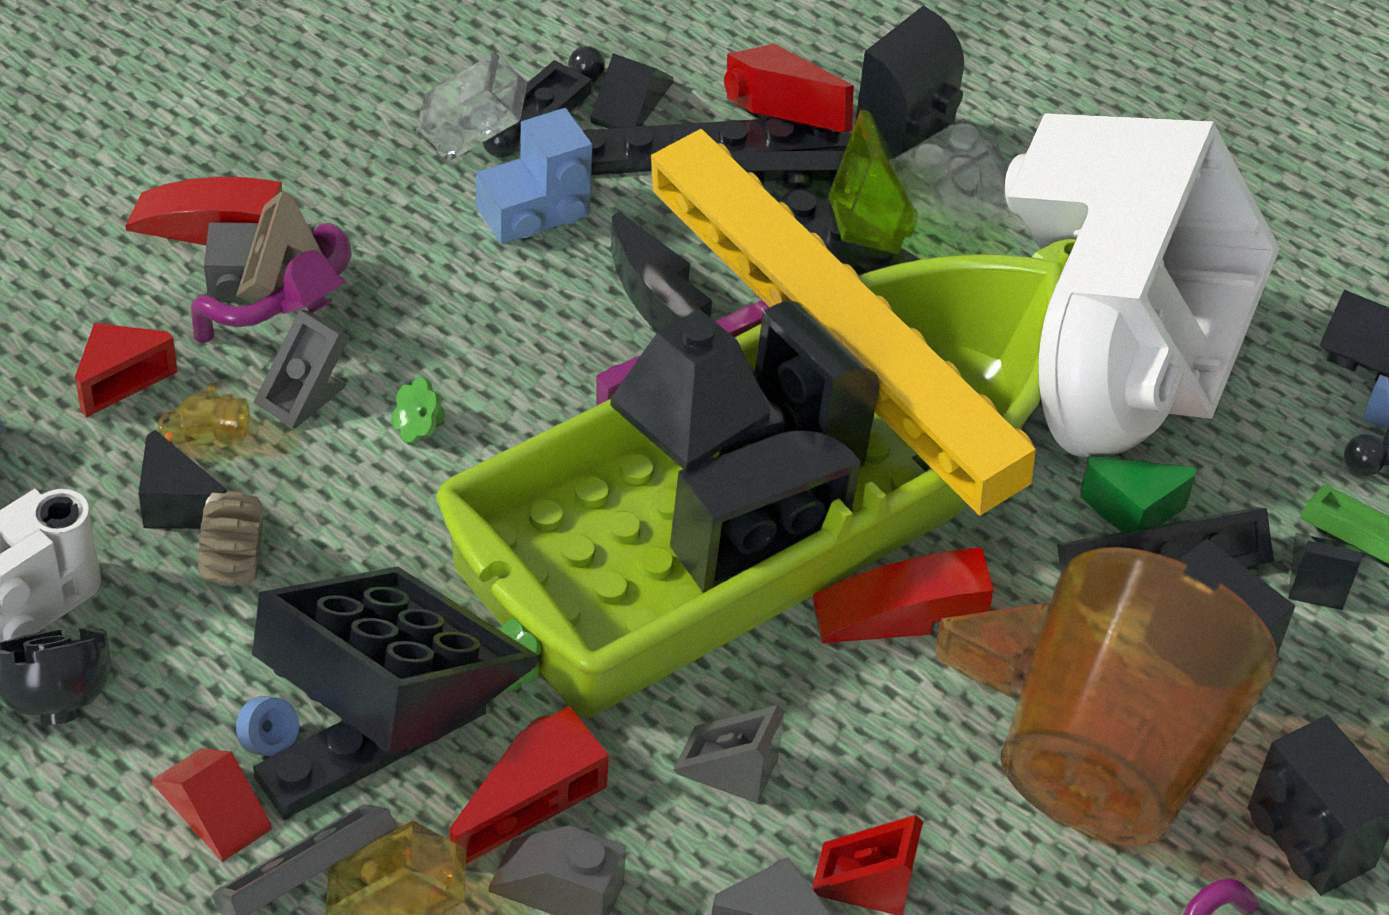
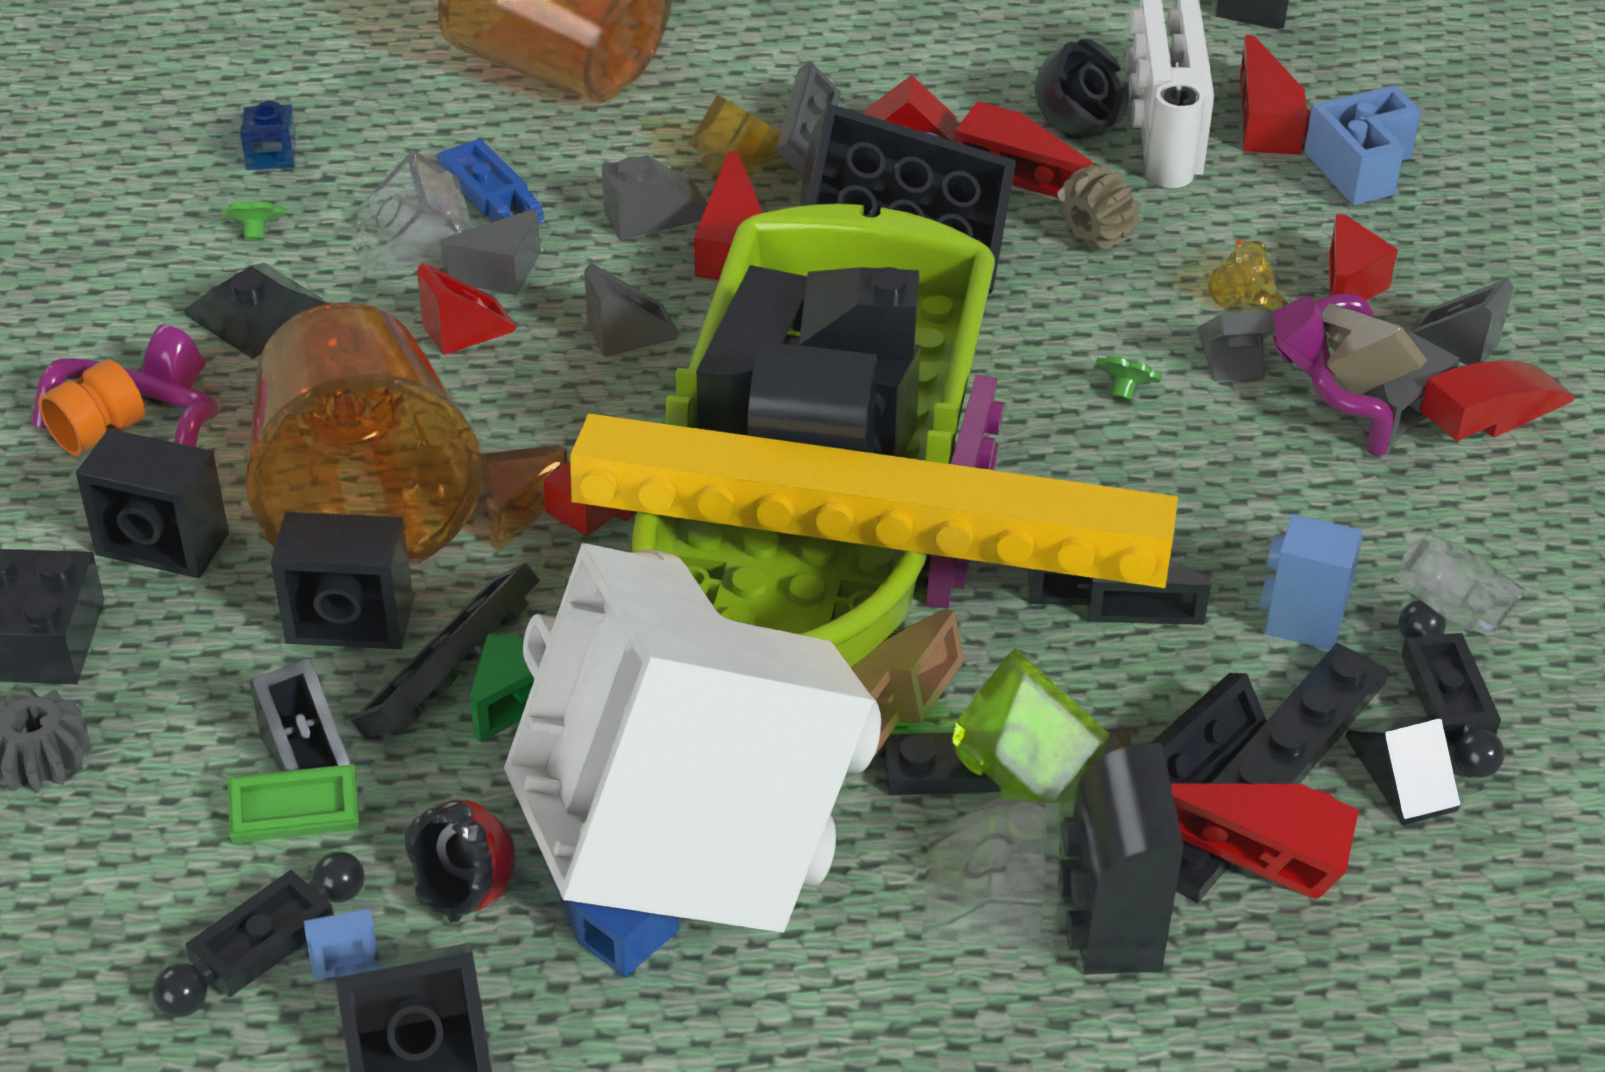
camera: 140 degrees right, 5 degrees down
(132, 263) = (1468, 324): none -> dark grey slope
(172, 486) = (1190, 227): black slope -> none
(184, 677) = (1040, 157): none -> red slope
(1279, 395) = (459, 857): none -> black hair

